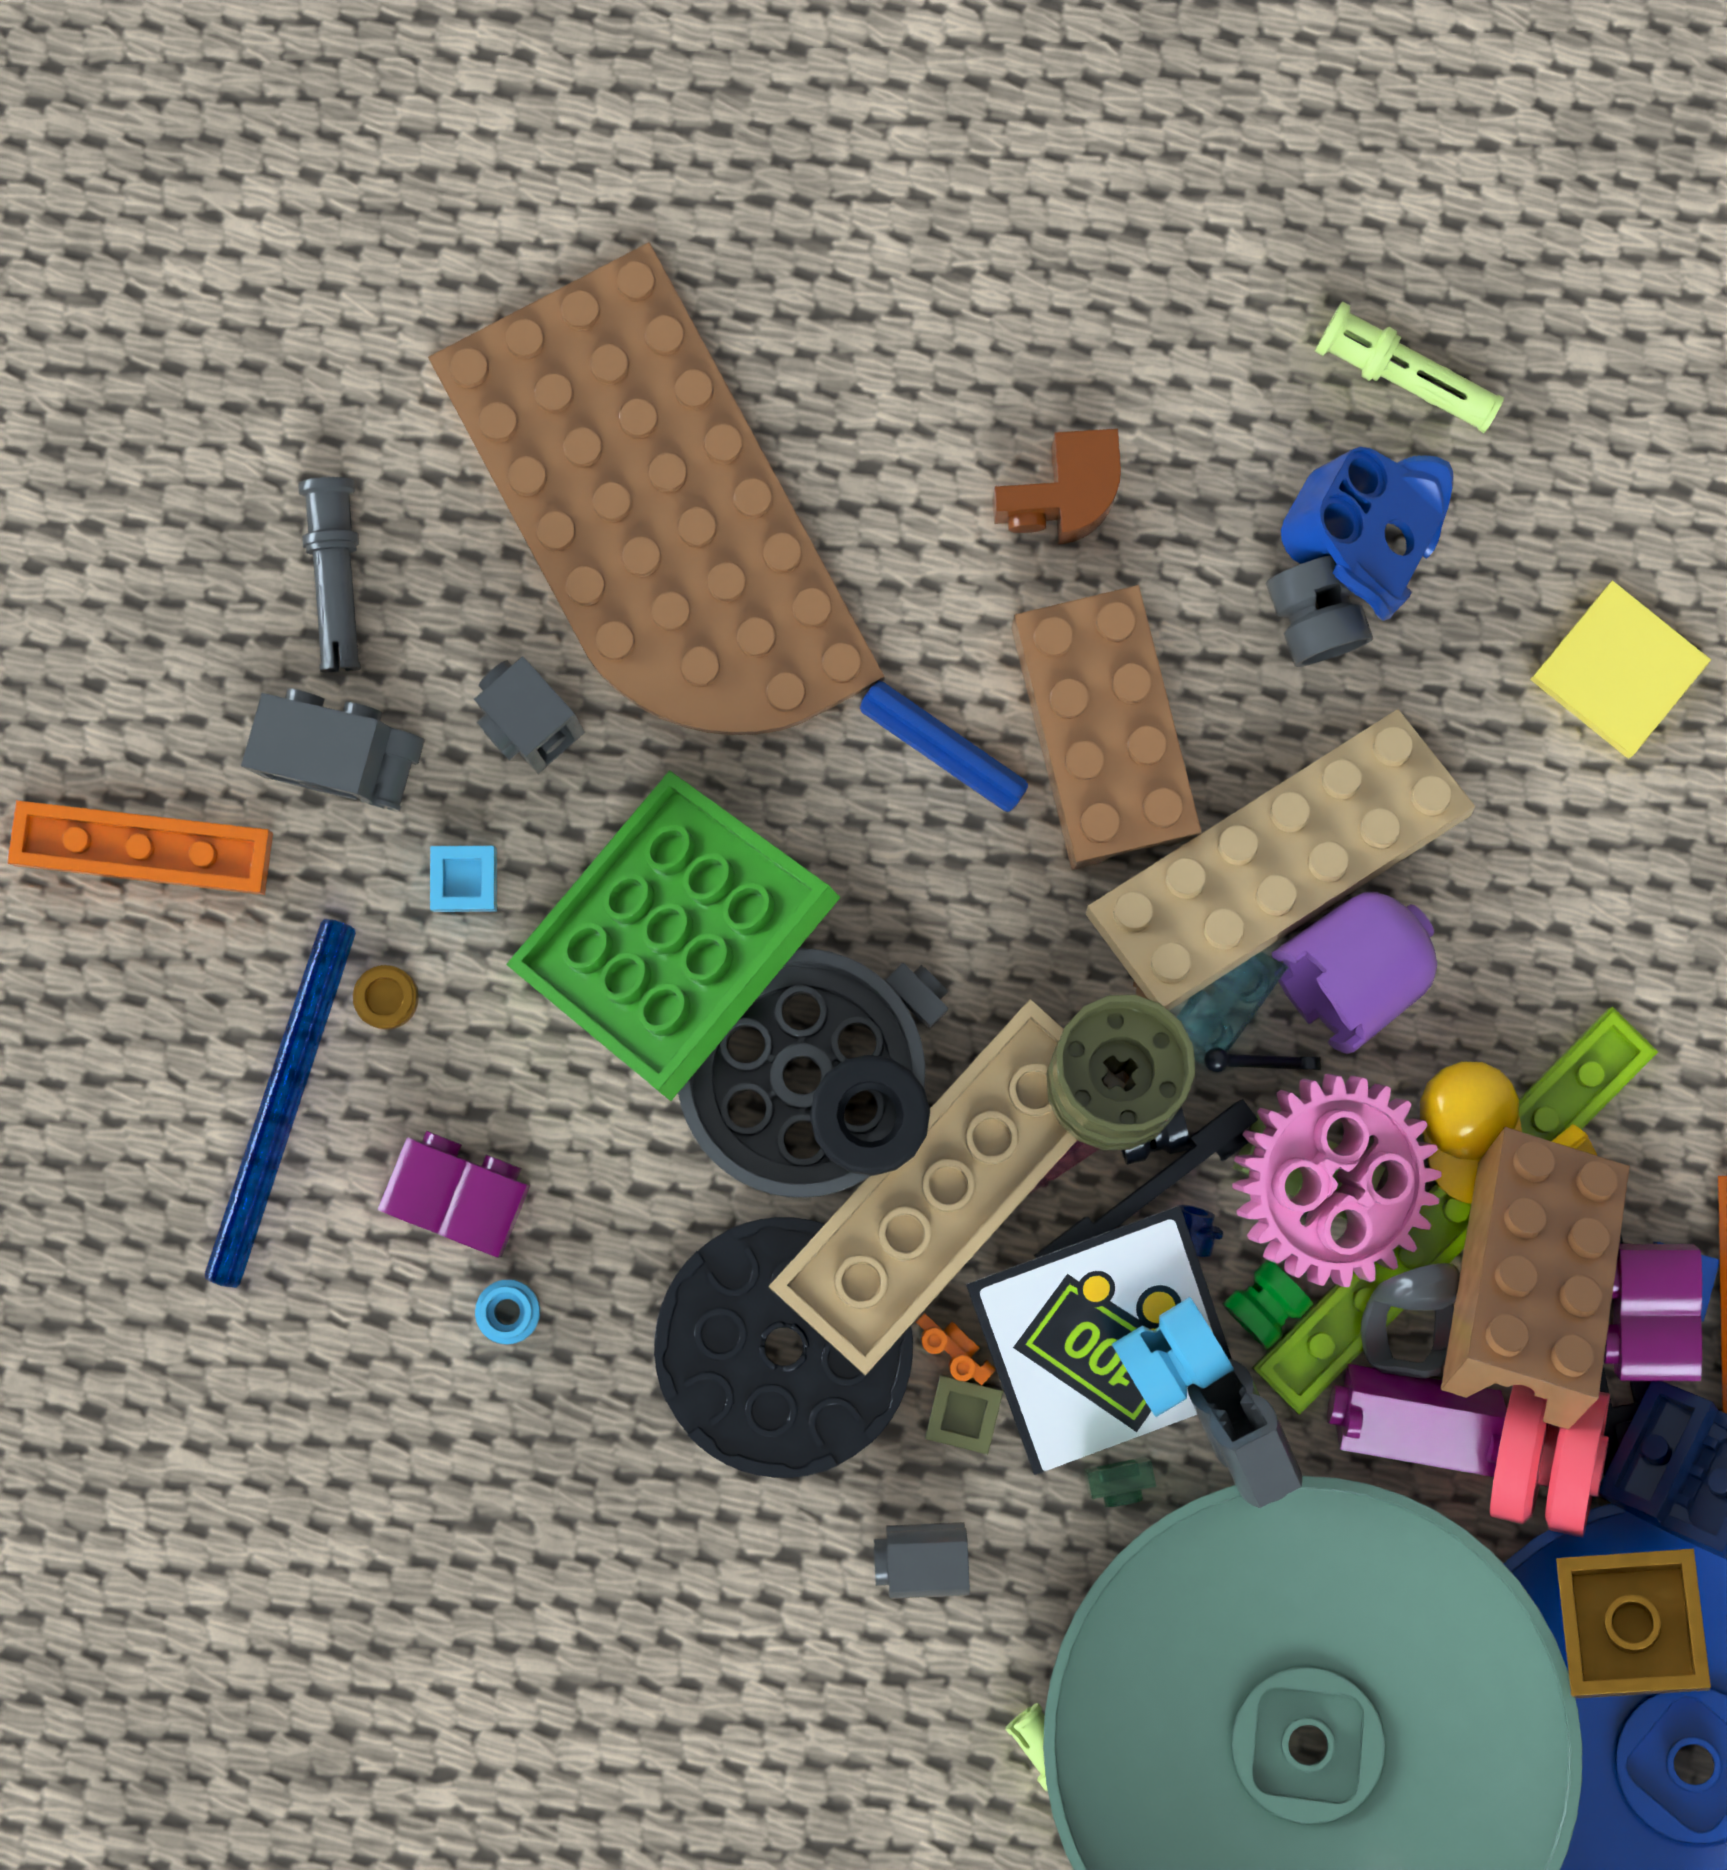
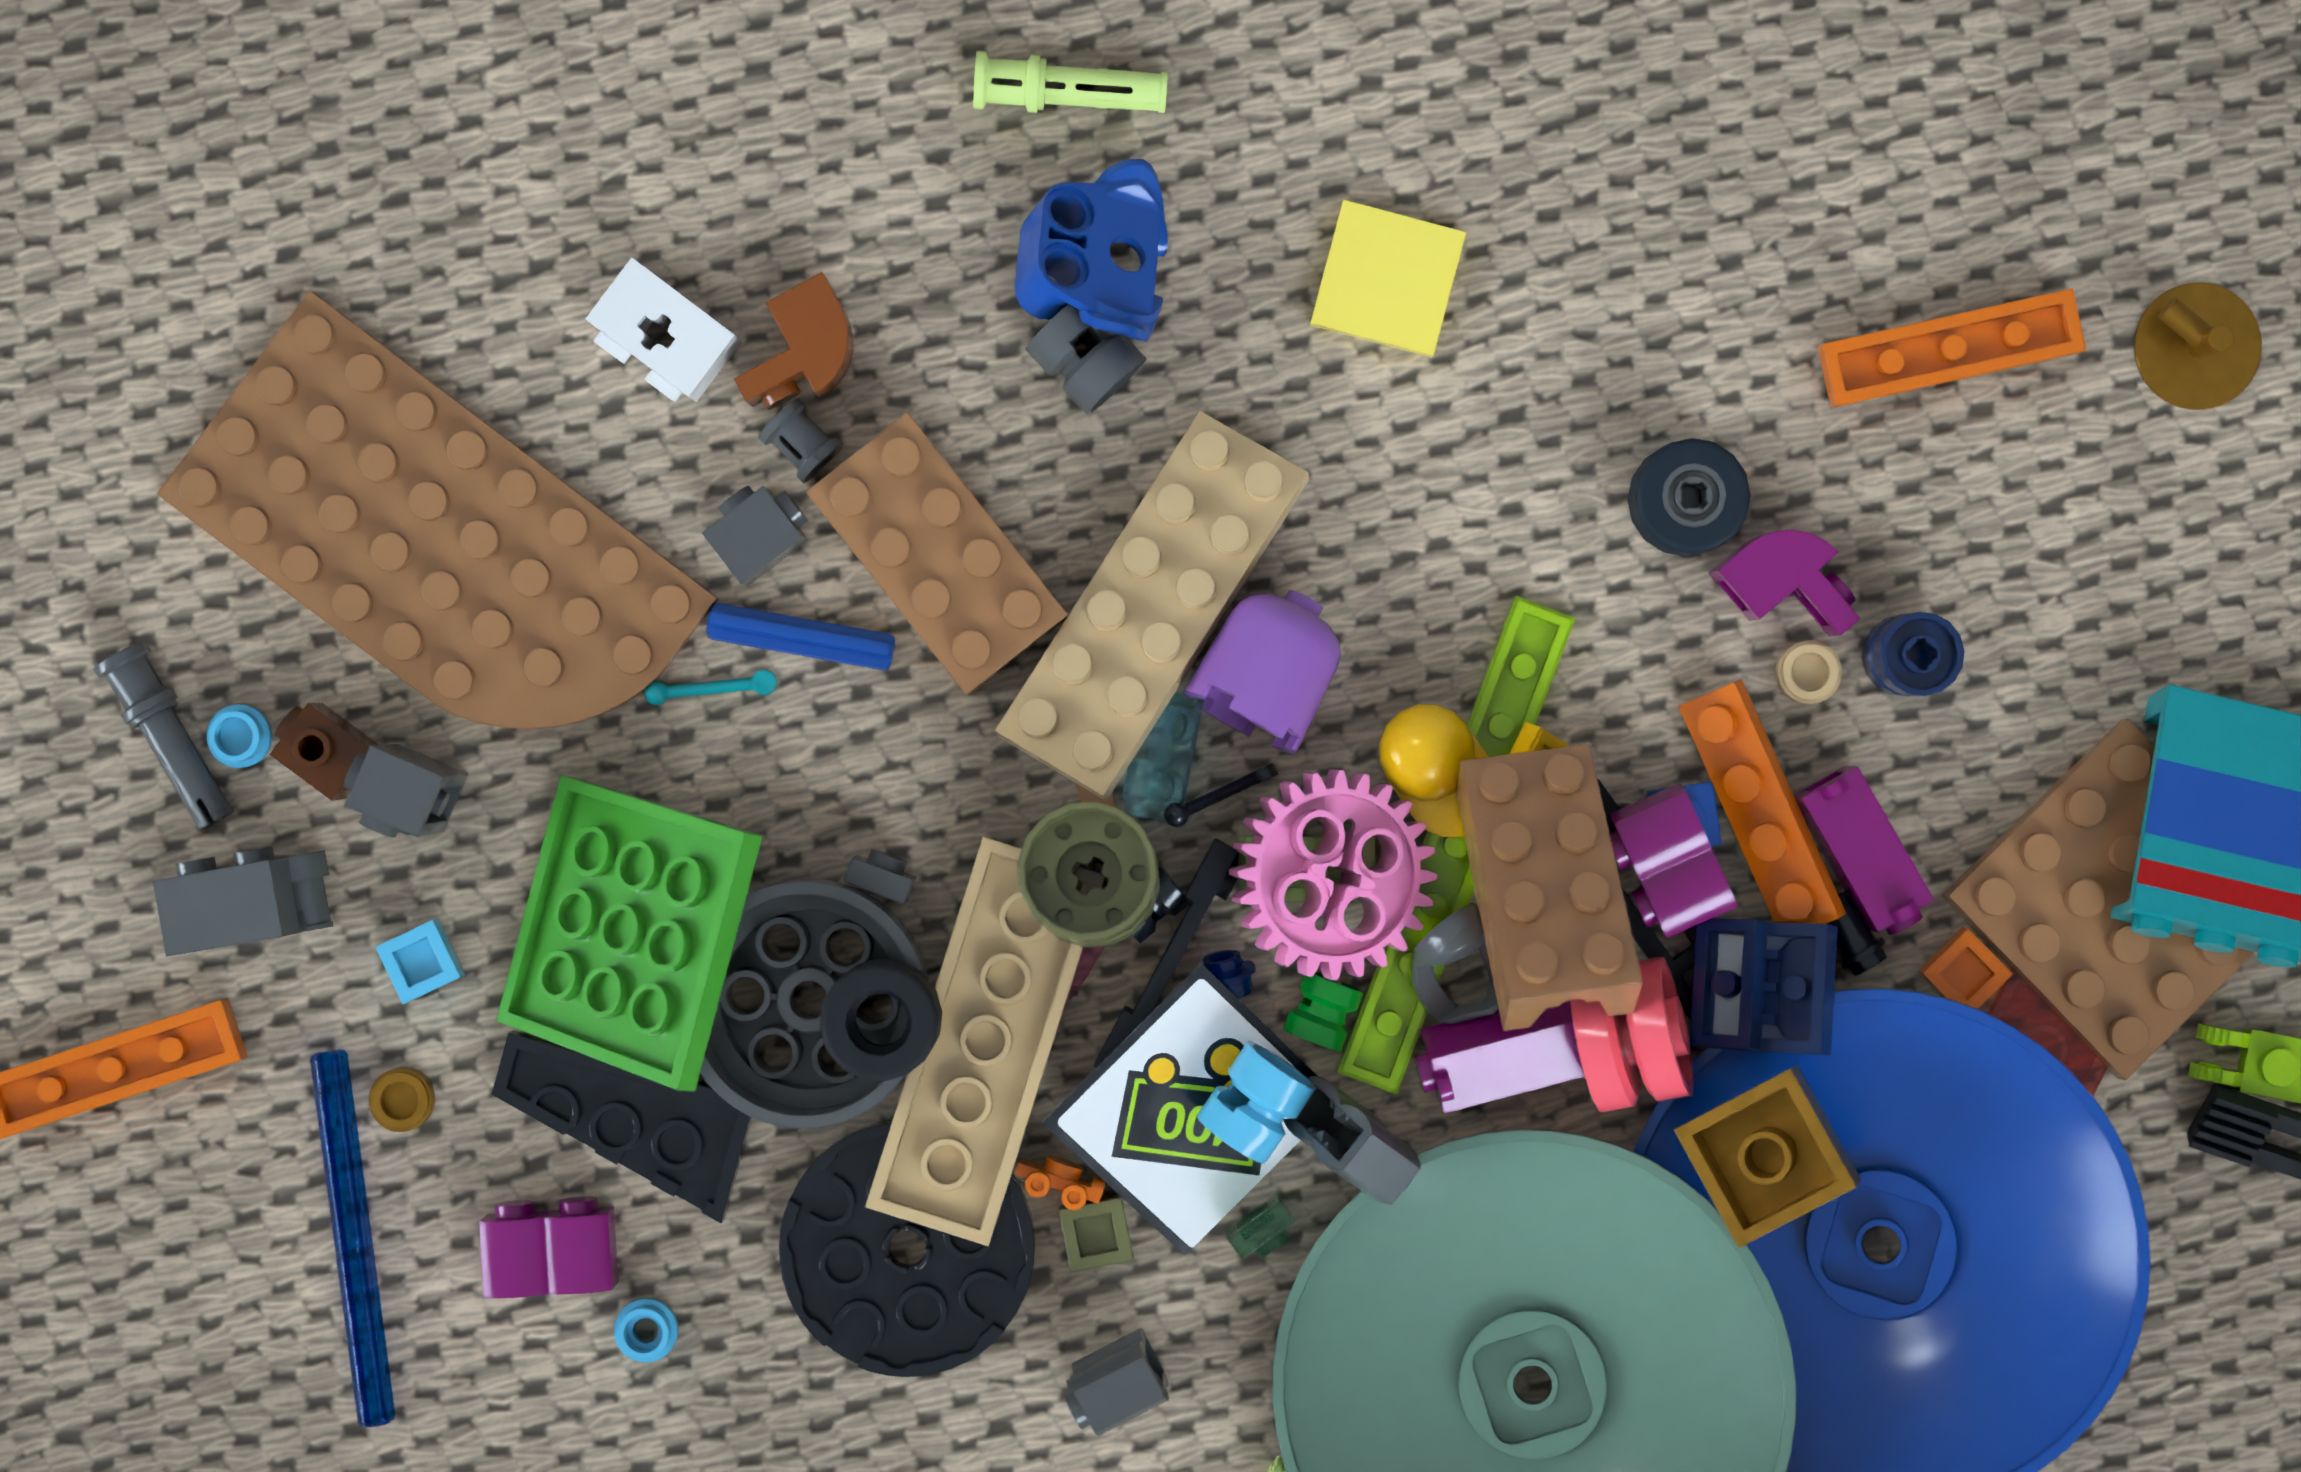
camera: 25 degrees left, 5 degrees up
(397, 604) = (239, 736): none -> medium azure plate
(465, 645) = (319, 747): none -> reddish brown brick
(602, 1122) = (670, 1136): none -> black wing
(889, 772) = (762, 682): none -> teal hinge
(946, 384) = (631, 308): none -> white brick
(949, 633) = (756, 532): none -> dark grey brick
(1025, 571) = (800, 440): none -> dark grey bush

